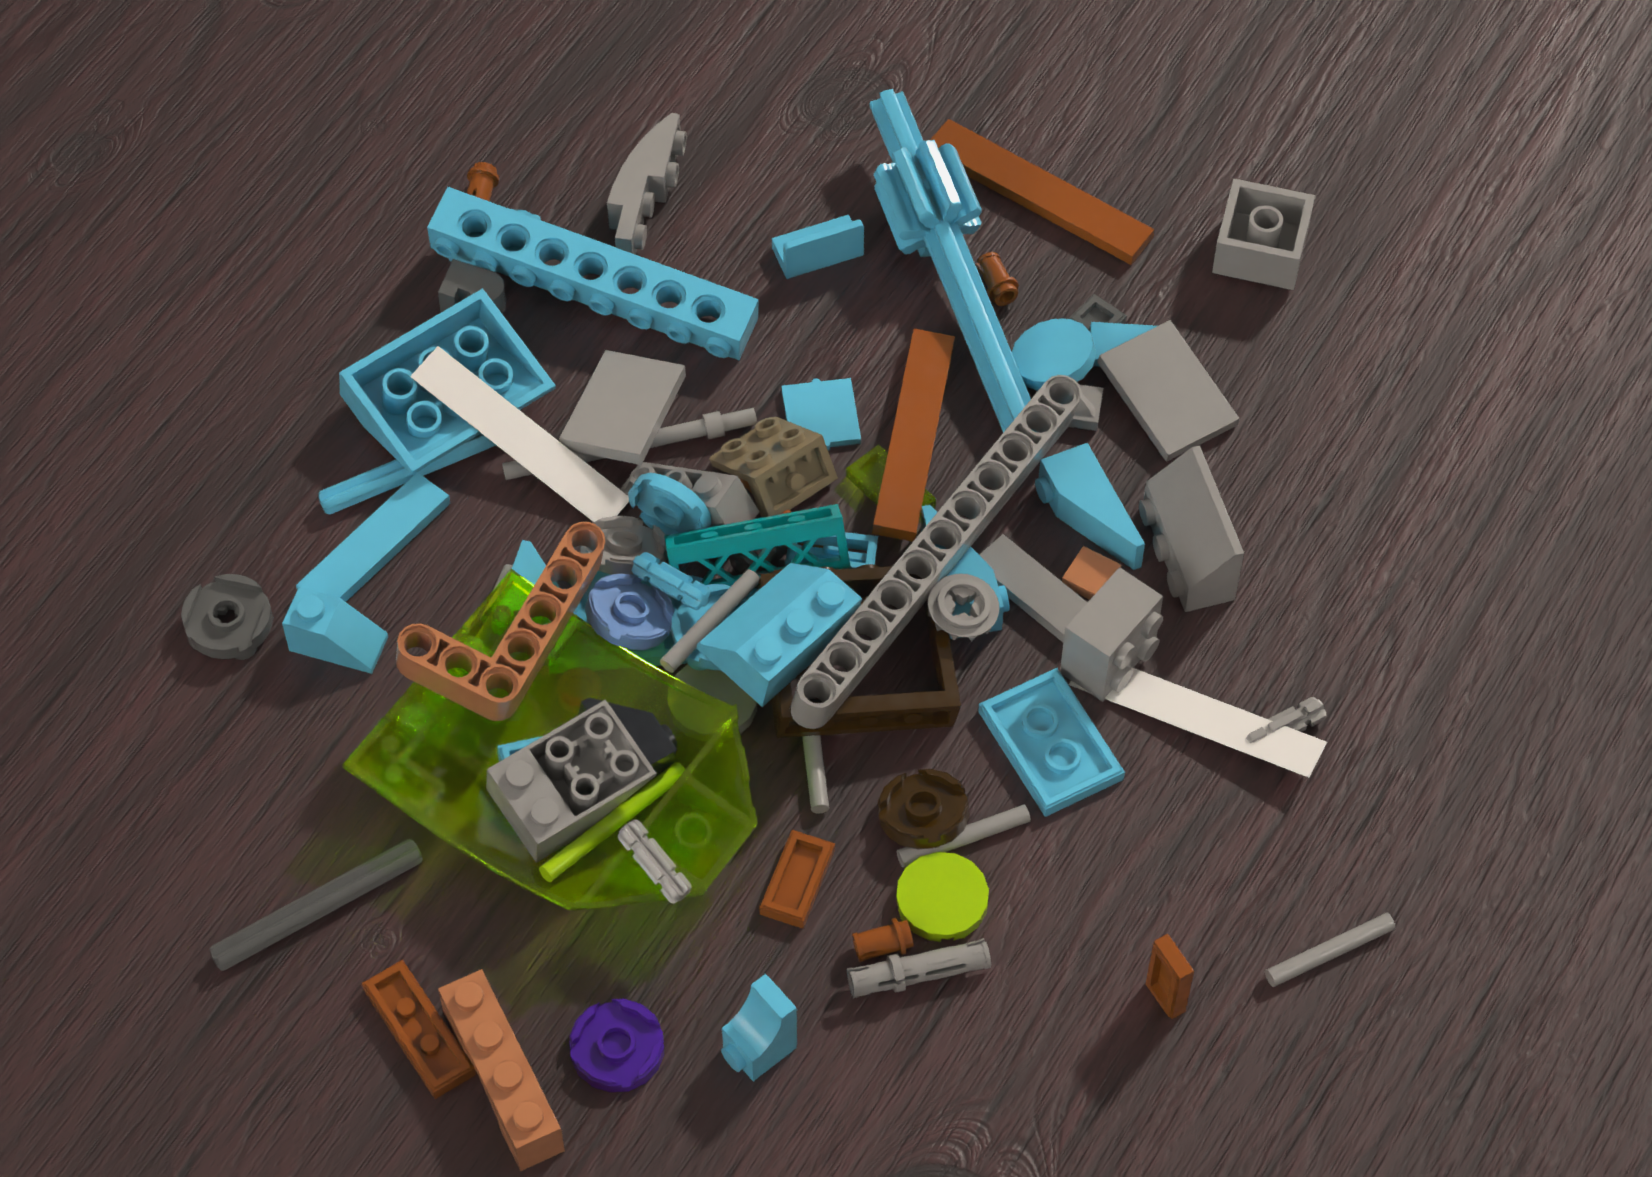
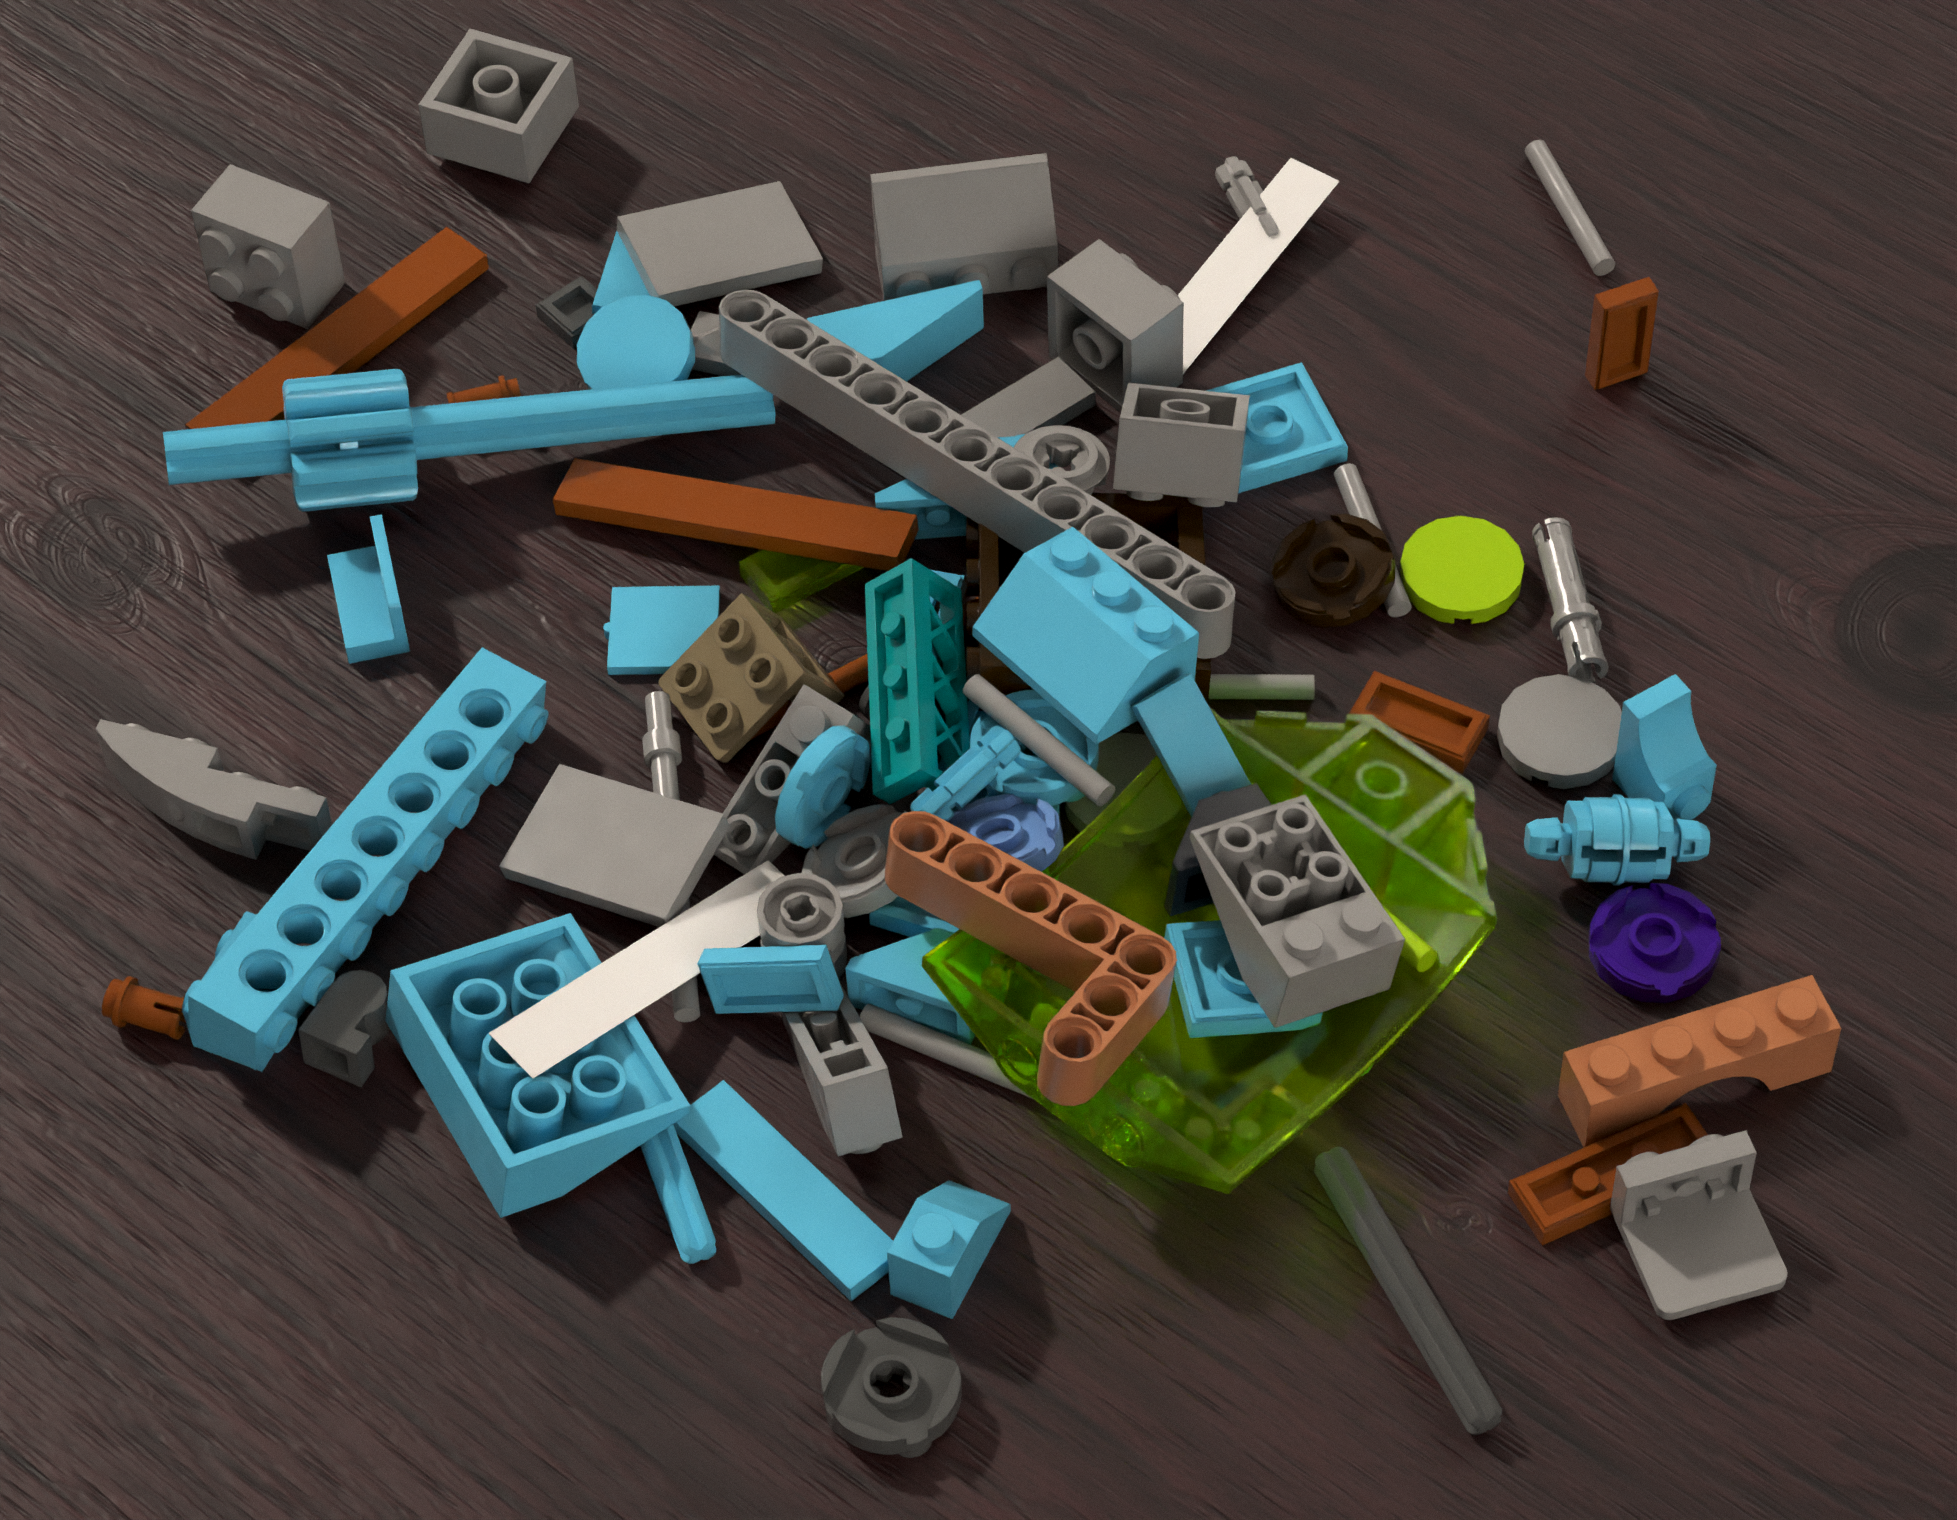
camera: 80 degrees left, 5 degrees down
(364, 1078) = (1696, 1226): none -> light grey bracket
(455, 555) = (845, 1078): none -> light grey slope
(515, 503) = (770, 979): none -> medium azure tile
(552, 510) = (803, 912): none -> light grey wheel
(654, 861) = (1436, 815): light grey axle -> none
(687, 1005) = (1617, 839): none -> medium azure piece
(704, 705) = (1189, 741): none -> medium azure tile
(804, 967) = (1560, 731): none -> light grey tile
(883, 940) = (1522, 621): dark orange pin -> none
(991, 678) = (1181, 444): none -> light grey brick
(1089, 572) = (992, 362): nougat tile -> none
(1093, 124) = (268, 246): none -> light grey brick

